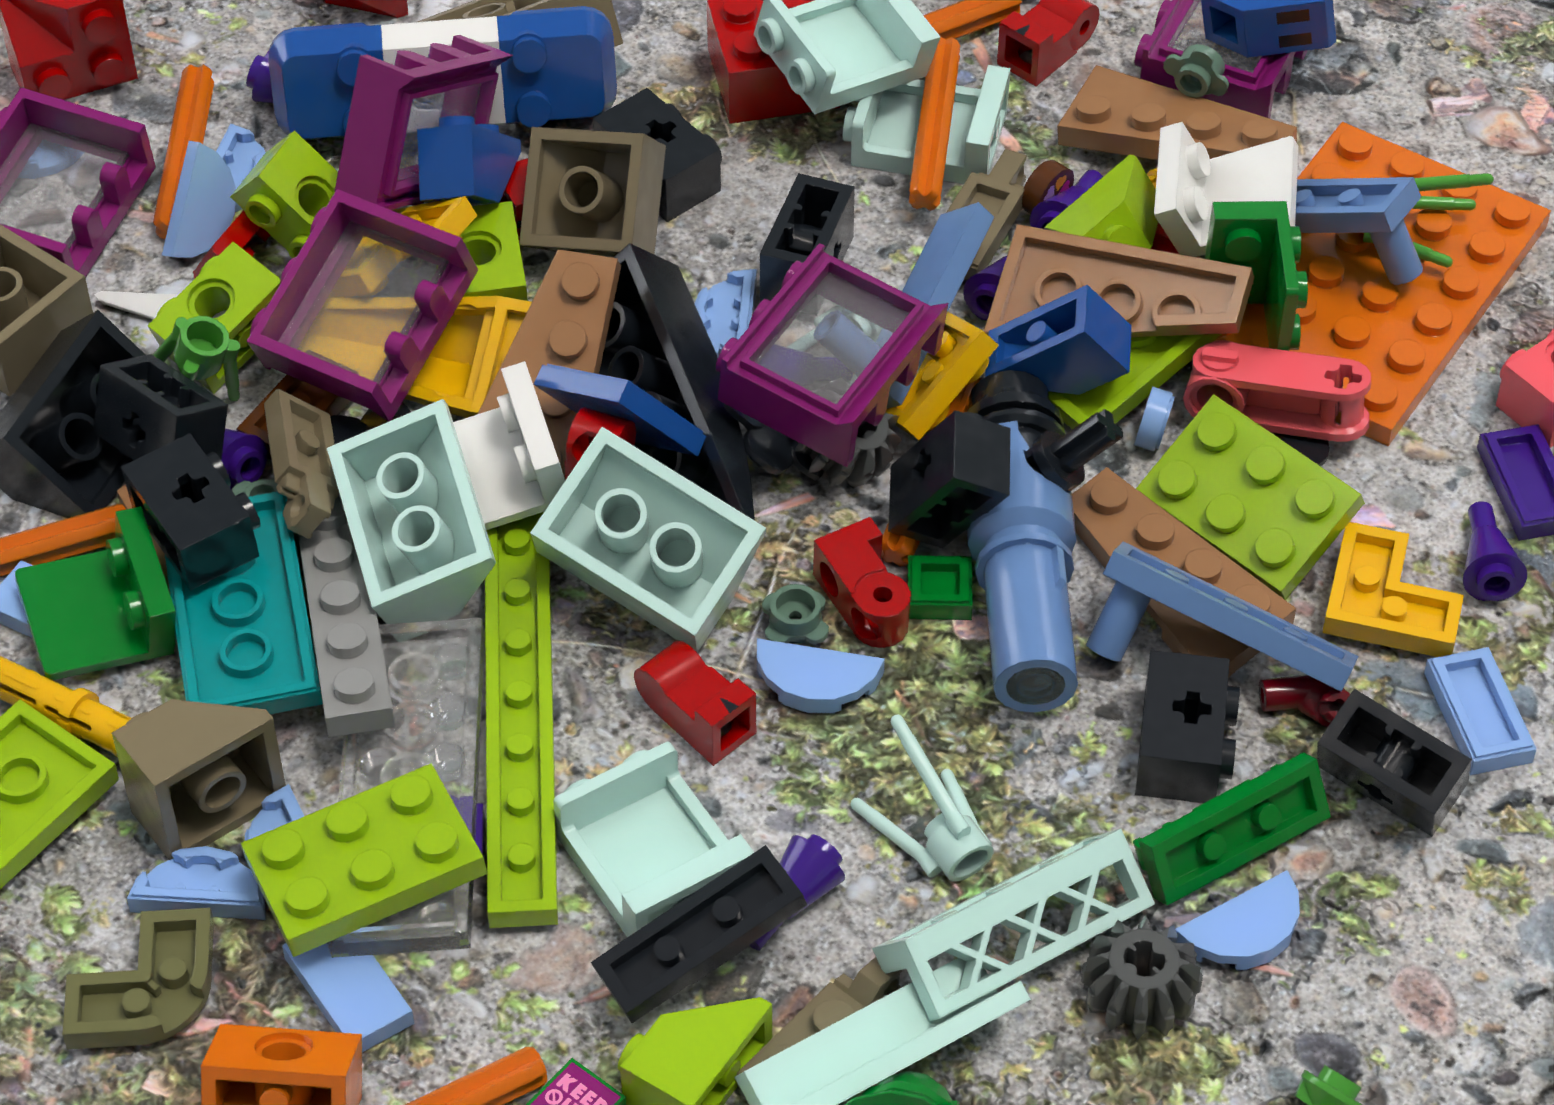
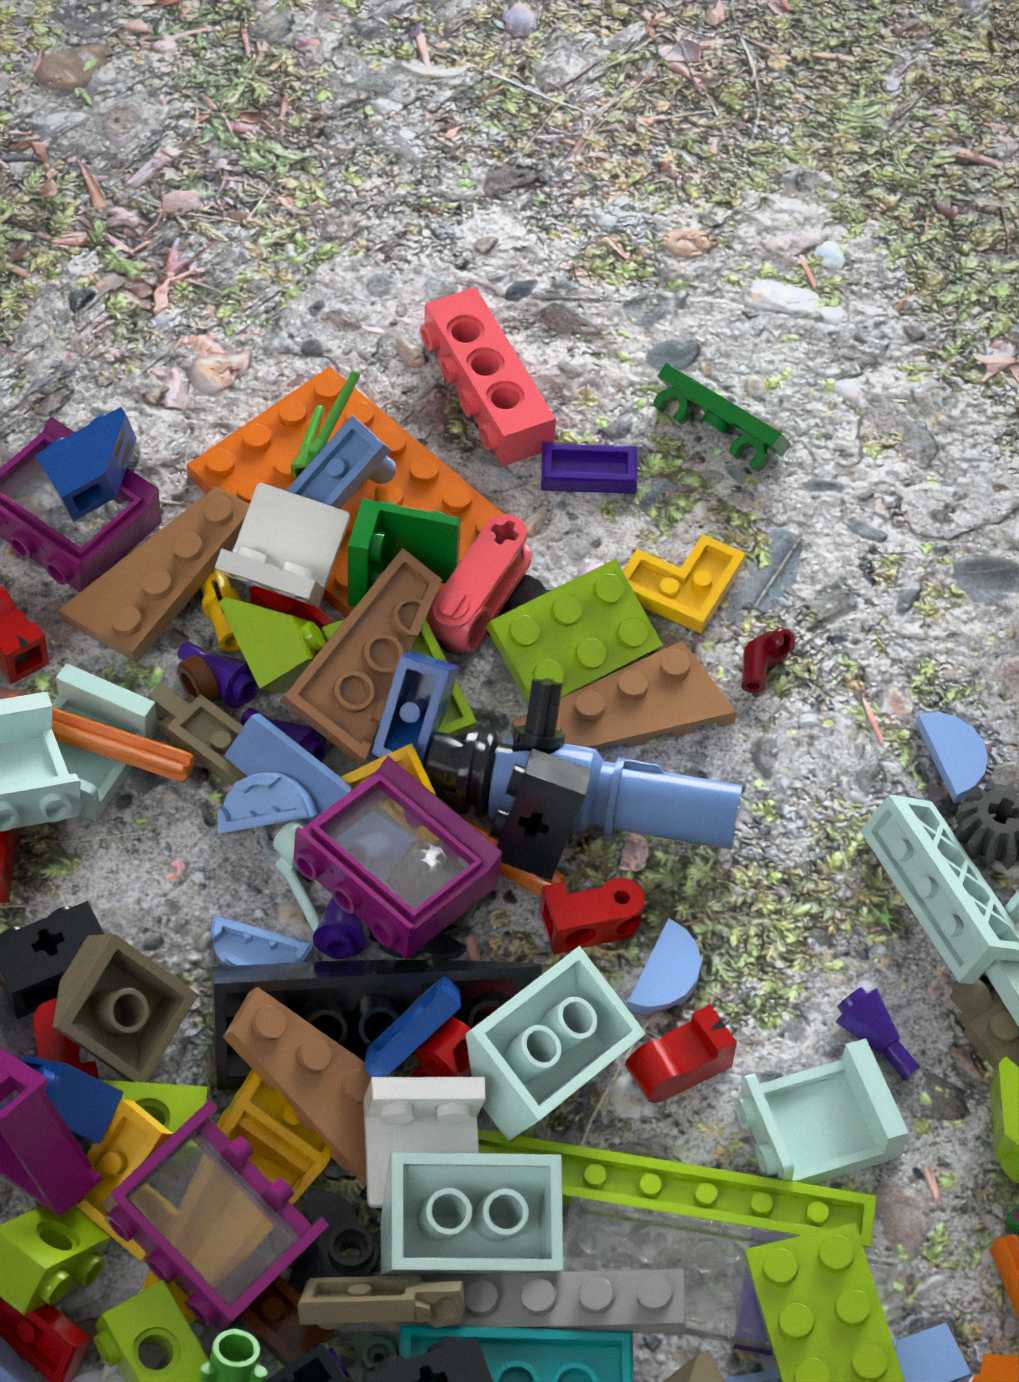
camera: 80 degrees left, 5 degrees up
(699, 934) = (934, 1092): black plate -> none
(800, 603) = (615, 961): sand green plate -> none
(811, 215) = (219, 863): black brick -> none
(900, 262) = (263, 801): none -> light blue tile
(940, 587) = (594, 863): green tile -> none
(954, 836) = (851, 912): light aqua plant -> none
(1144, 577) = (695, 683): medium blue piece -> none
(1154, 419) = (476, 676): light blue tile -> none
(1184, 727) = (781, 739): black brick -> none
(1198, 71) = (125, 533): sand green plate -> none
(1233, 828) = (875, 734): green plate -> none
(1393, 762) = (853, 618): black brick -> none
(1480, 710) = (792, 562): light blue tile -> none
(1491, 564) = (667, 510): dark purple cone -> none

